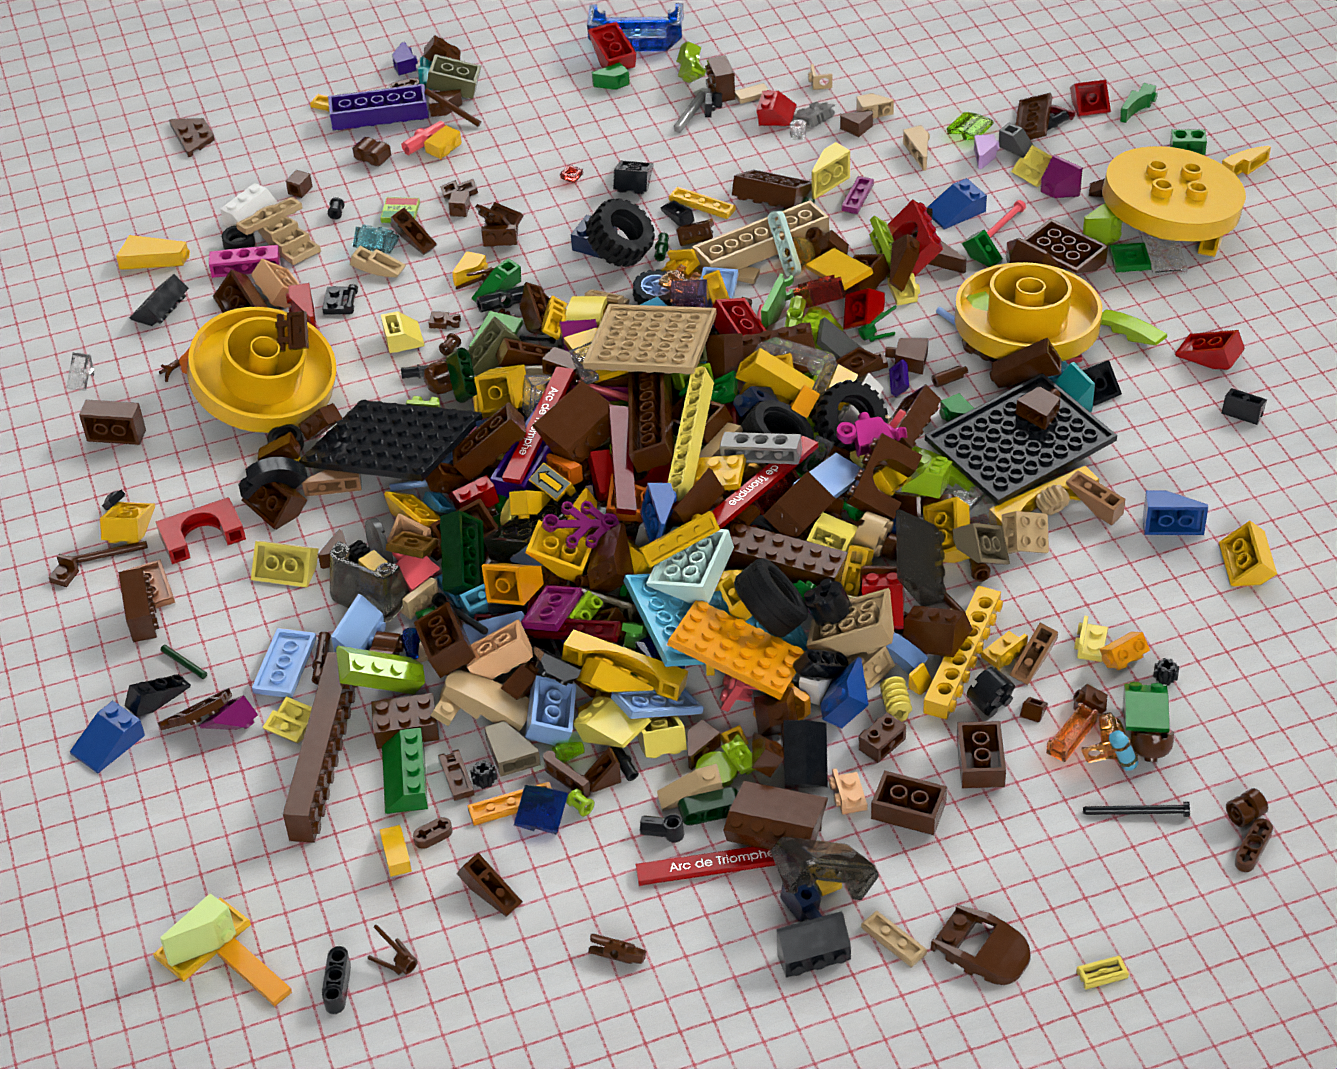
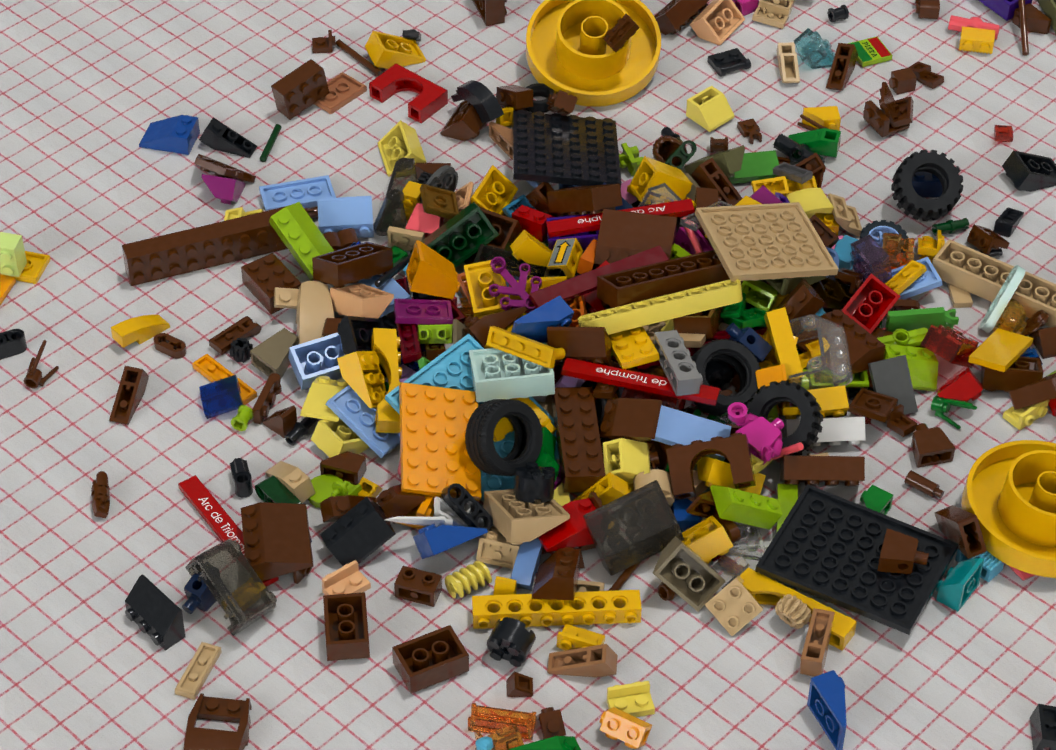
camera: 60 degrees right, 0 degrees up
(301, 300) = (690, 44): slope -> none
(404, 772) = (222, 307): green slope -> none
(546, 302) = (793, 172): none -> flat silver tile
(568, 750) = (293, 390): clear neon green cone -> none
(702, 202) = (1038, 232): yellow tile -> none
(826, 690) = (423, 521): none -> white bar
(899, 378) = (884, 452): dark purple plate -> none
(1105, 381) = (991, 598): black slope -> none

